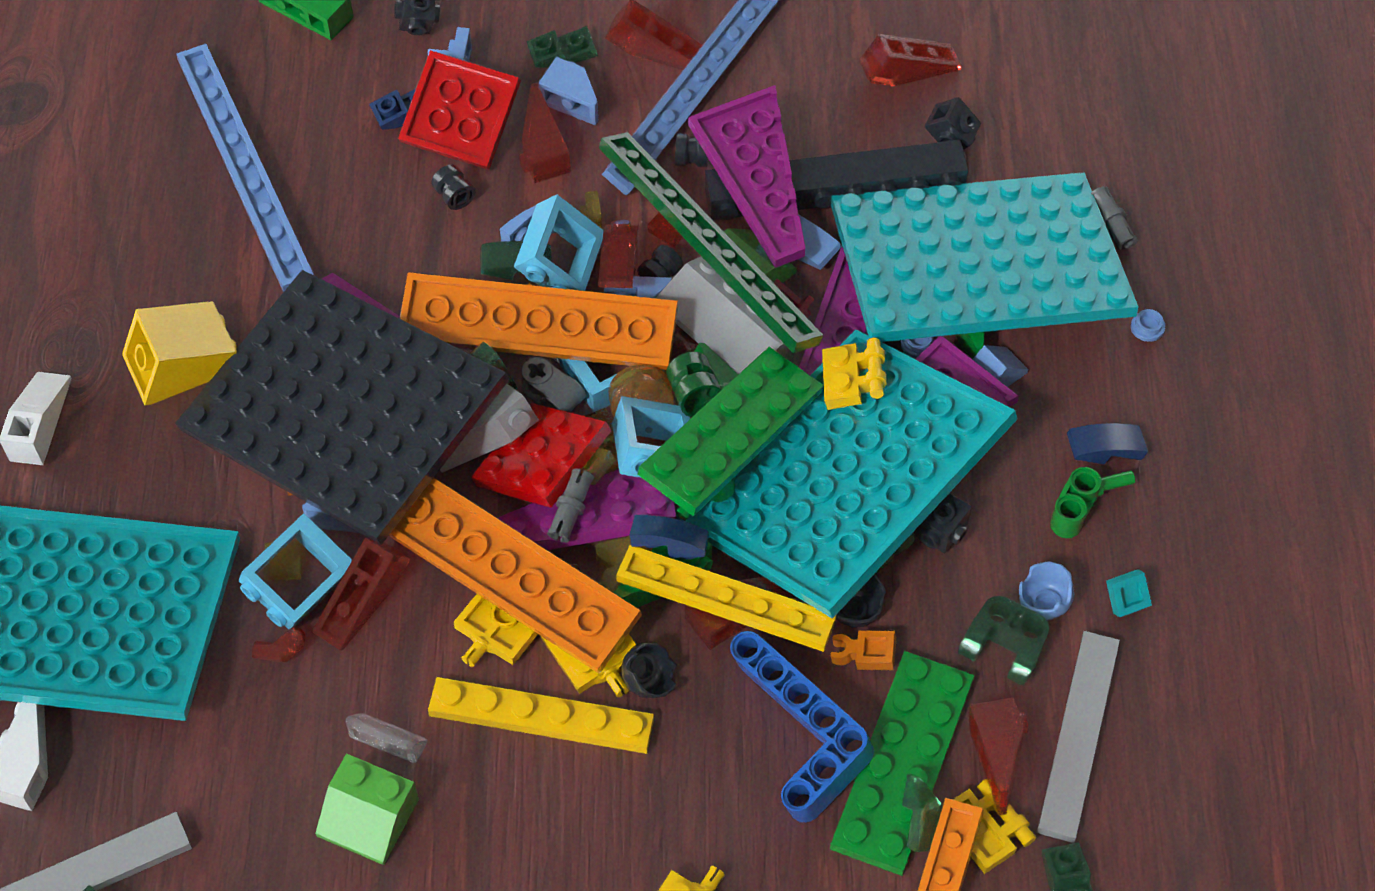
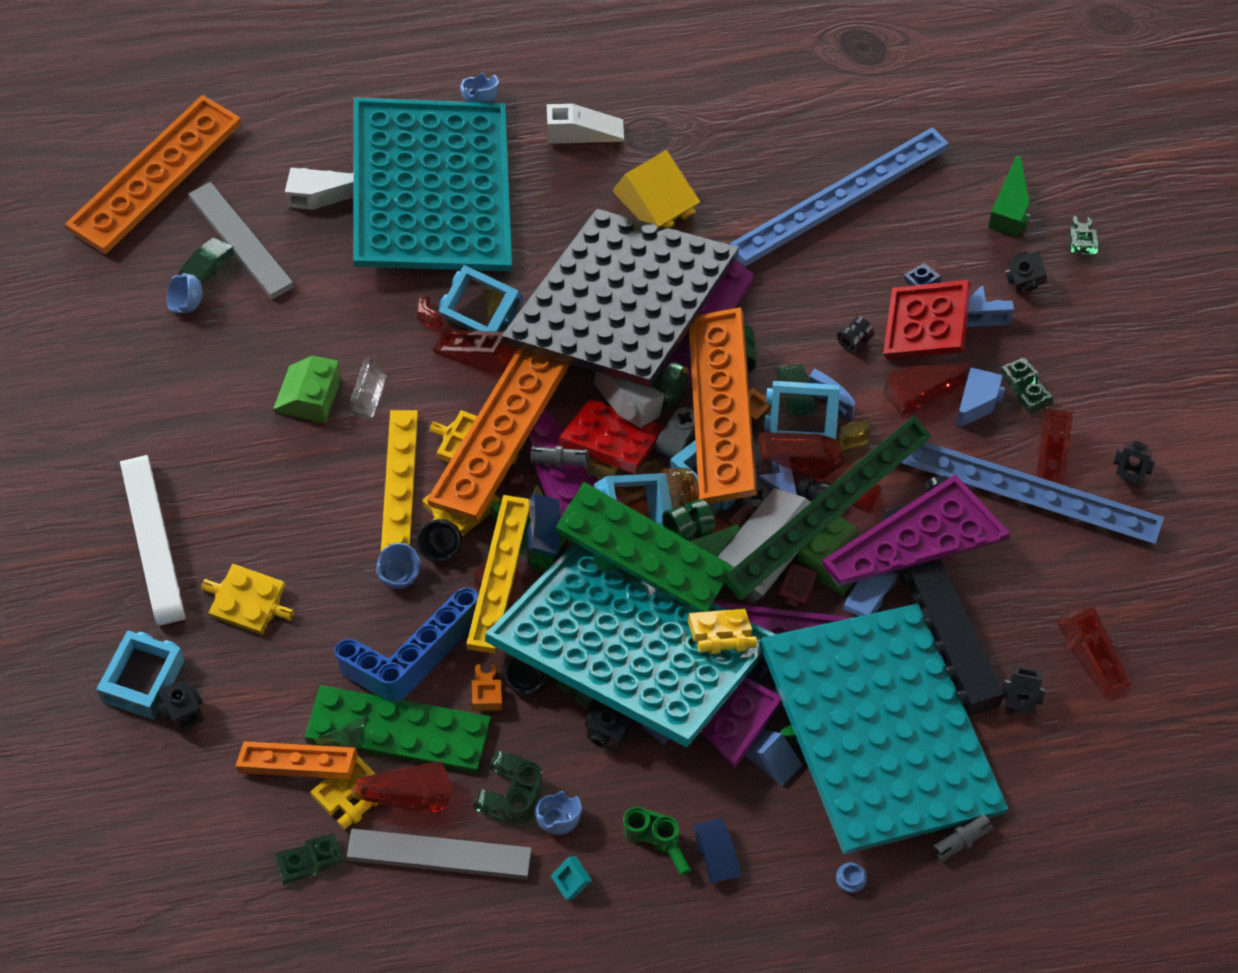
camera: 80 degrees right, 0 degrees up
(676, 725) = (398, 566): none -> medium blue hair

